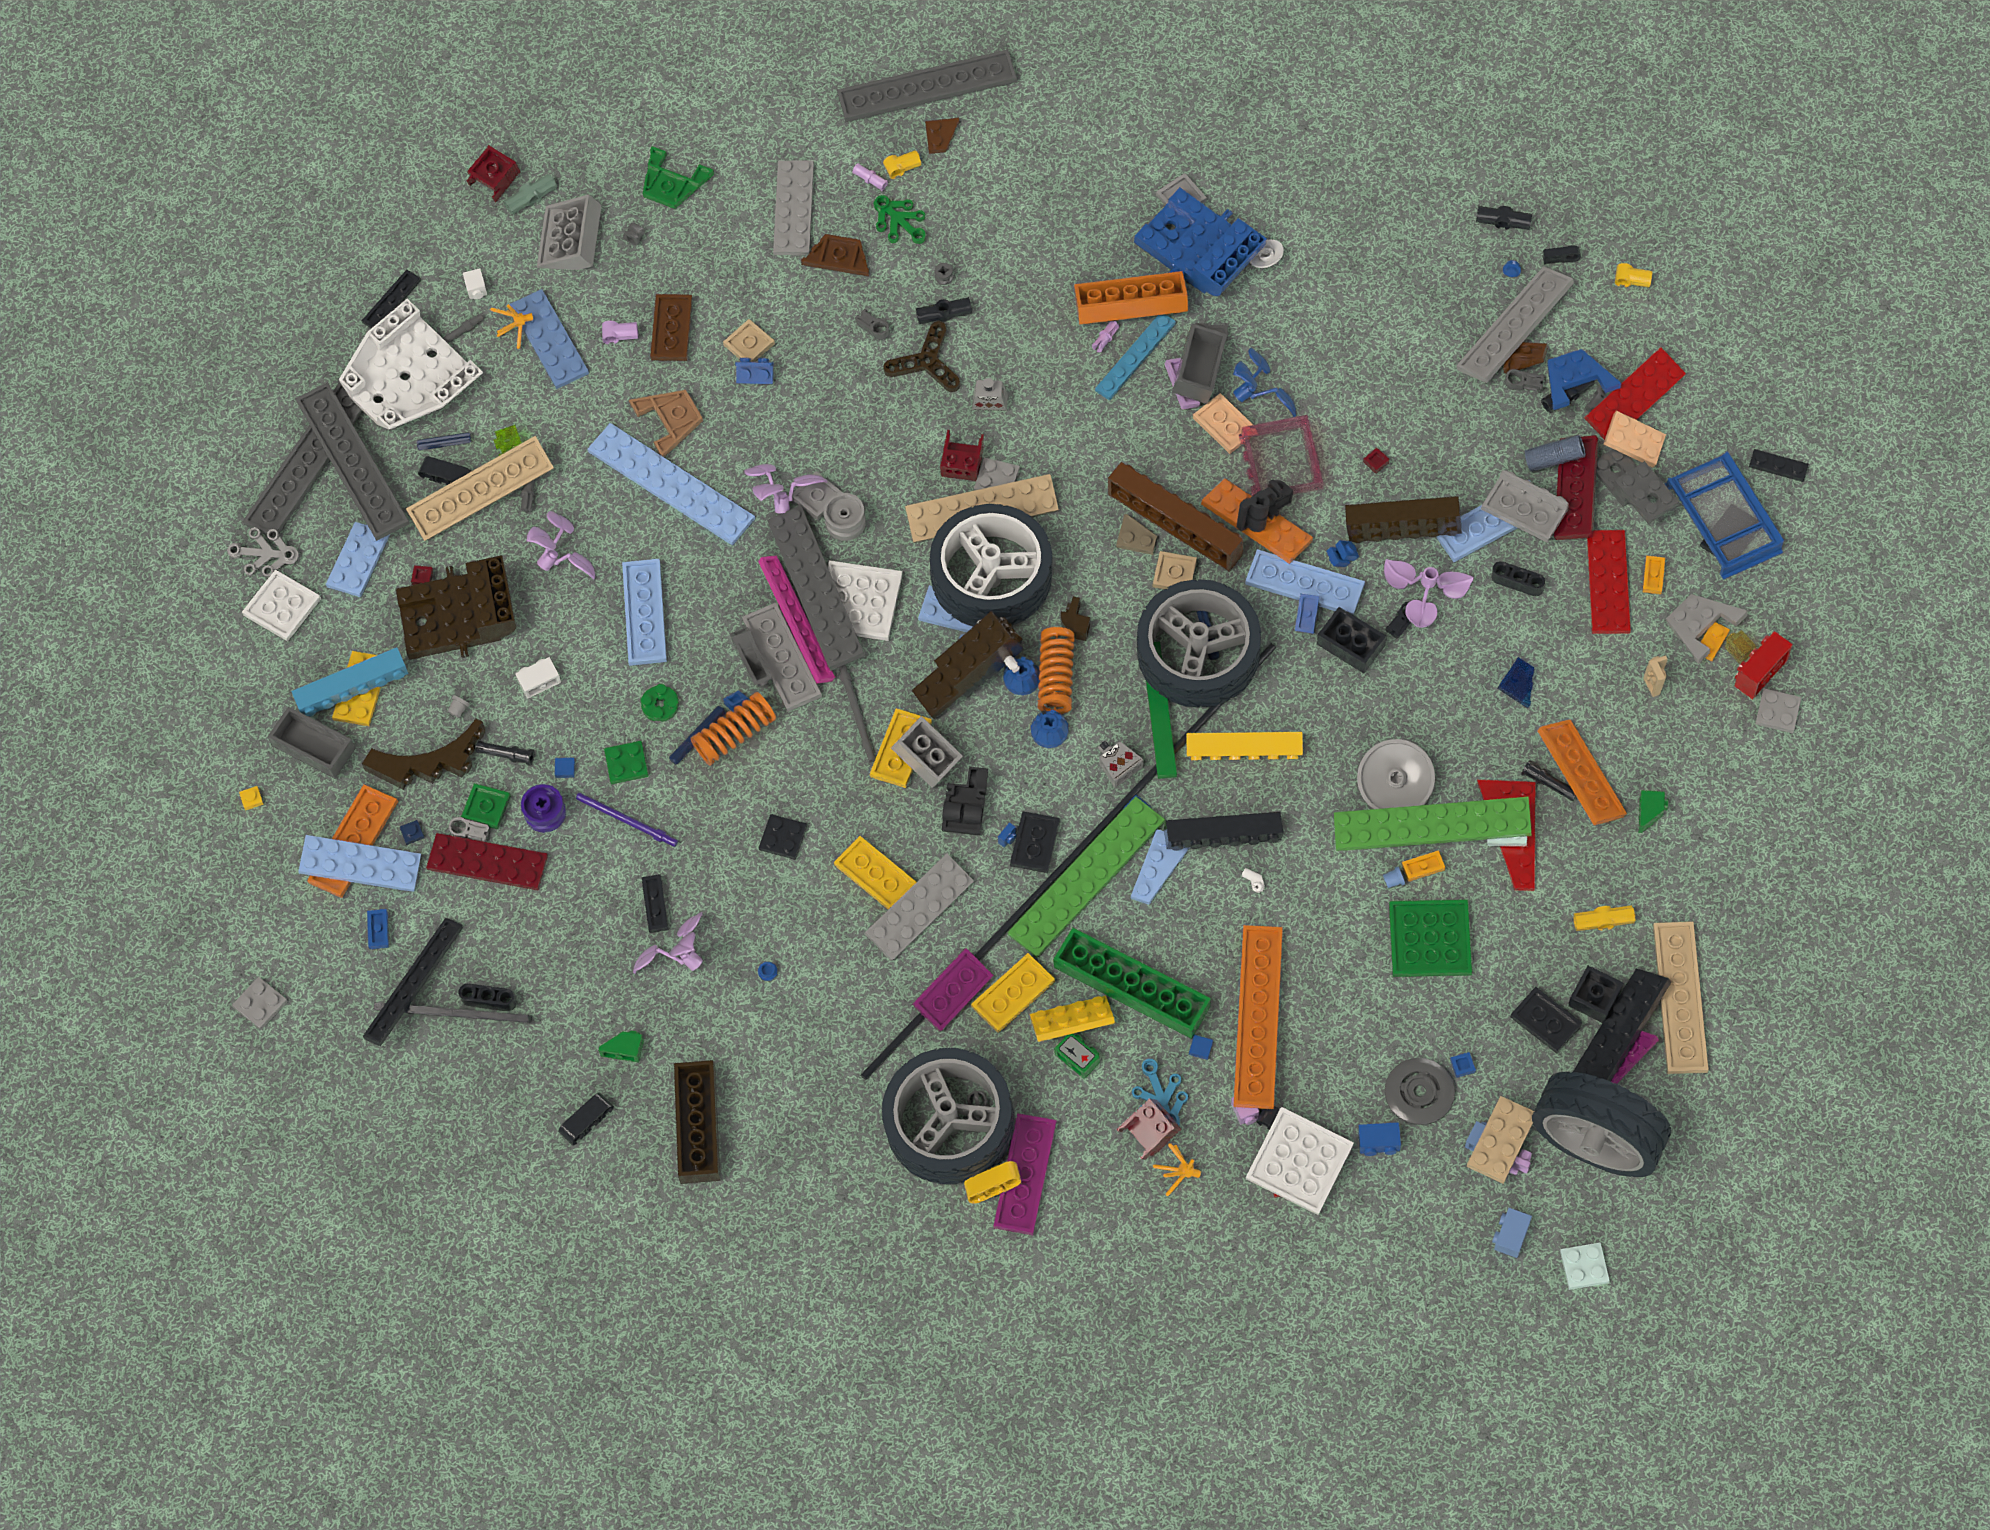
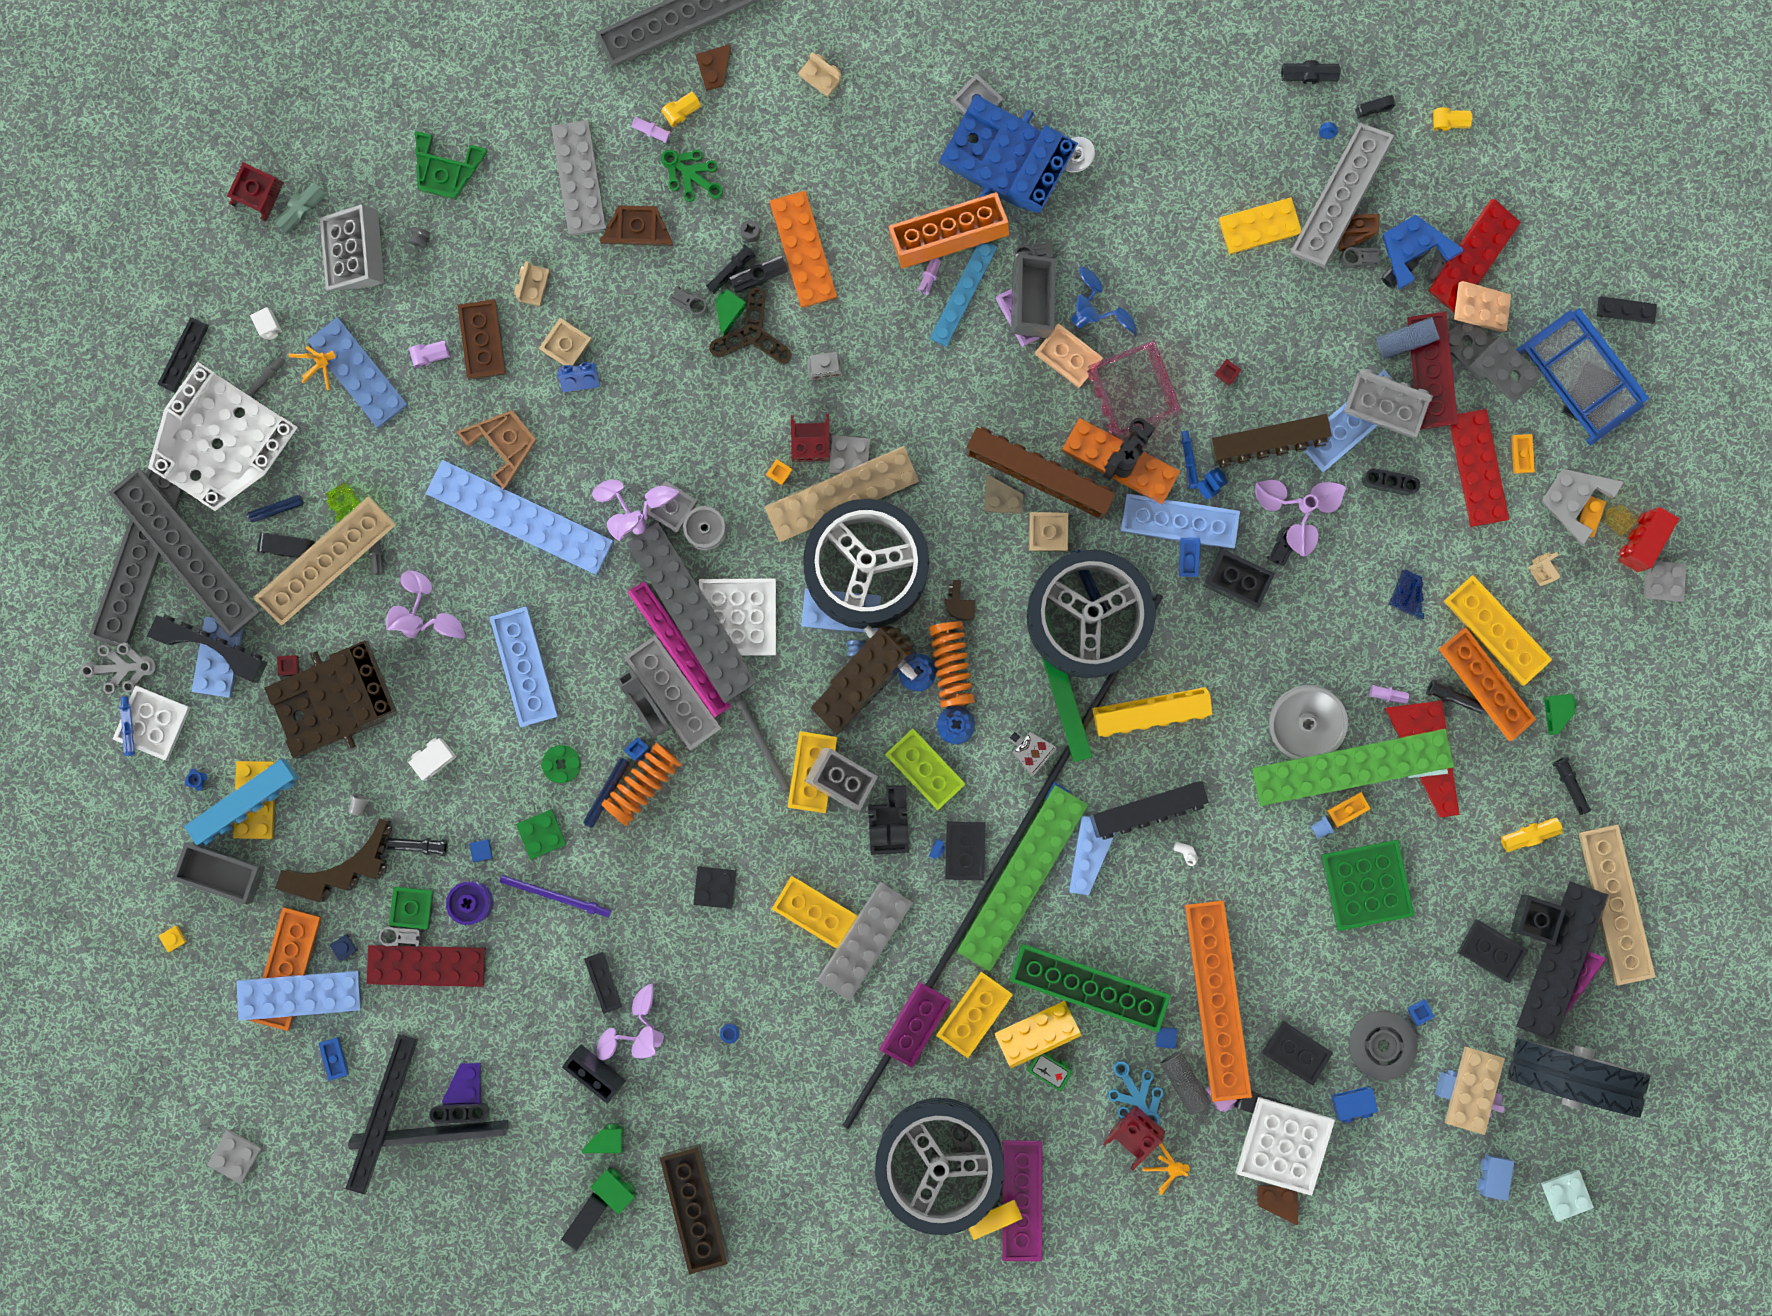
camera: 15 degrees left, 20 degrees up
(258, 605) = (127, 730): none -> blue piece
(309, 656) = (190, 779): none -> blue plate
(323, 527) = (242, 664): none -> black arch
(499, 972) = (465, 1085): none -> dark purple wing
(621, 1094) = (614, 1190): none -> green brick
(627, 981) = (594, 1074): none -> black brick
(729, 288) = (532, 284): none -> tan bracket
(909, 336) = (729, 310): none -> green slope
(925, 298) = (737, 263): none -> black pin
(926, 481) = (779, 472): none -> light orange plate
(990, 297) = (803, 249): none -> orange plate
(1011, 762) = (925, 769): none -> lime plate
(1039, 154) = (821, 74): none -> tan bracket
(1211, 1088) = (1191, 1092): none -> dark grey piece
(1287, 1220) = (1279, 1201): none -> reddish brown wing
(1324, 531) = (1189, 459): none -> blue piece
(1330, 1082) = (1297, 1052): none -> black plate
(1431, 340) = (1260, 225): none -> yellow plate
(1483, 769) = (1389, 694): none -> lavender axle
(1602, 727) = (1497, 630): none -> yellow plate
(1650, 871) = (1568, 777): none -> black pin

